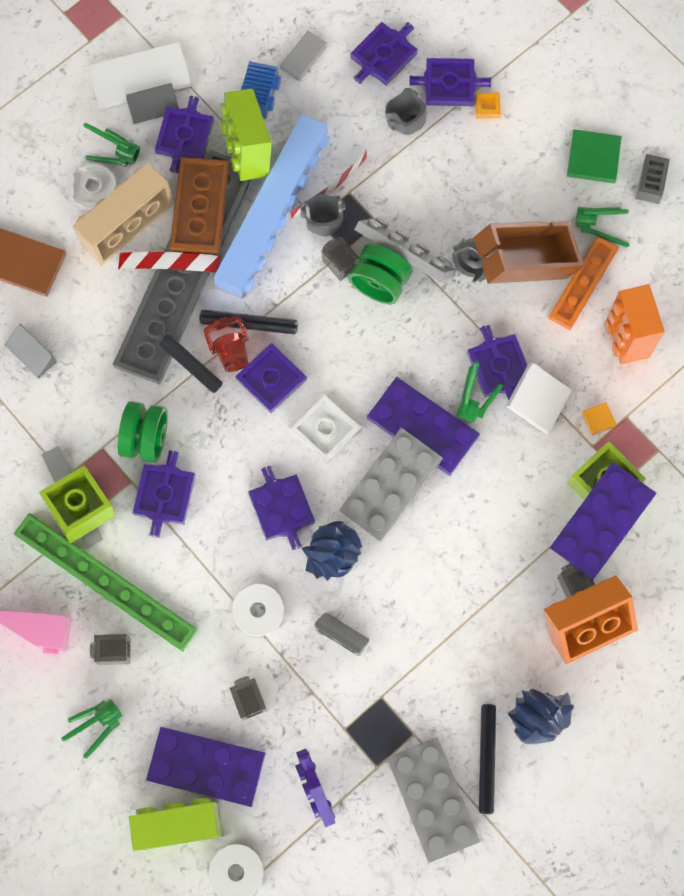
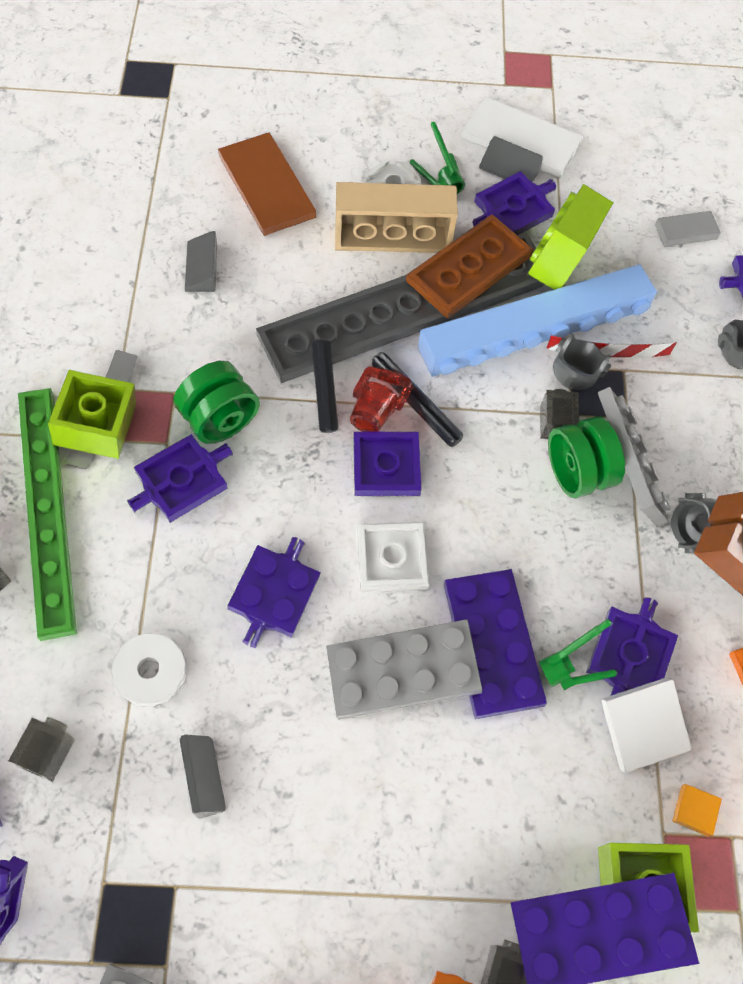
camera: 35 degrees right, 10 degrees down
(169, 260) = (397, 288): sticker -> none
(264, 81) = (625, 219): blue brick -> none
(332, 550) = (276, 678): dark blue hair -> none

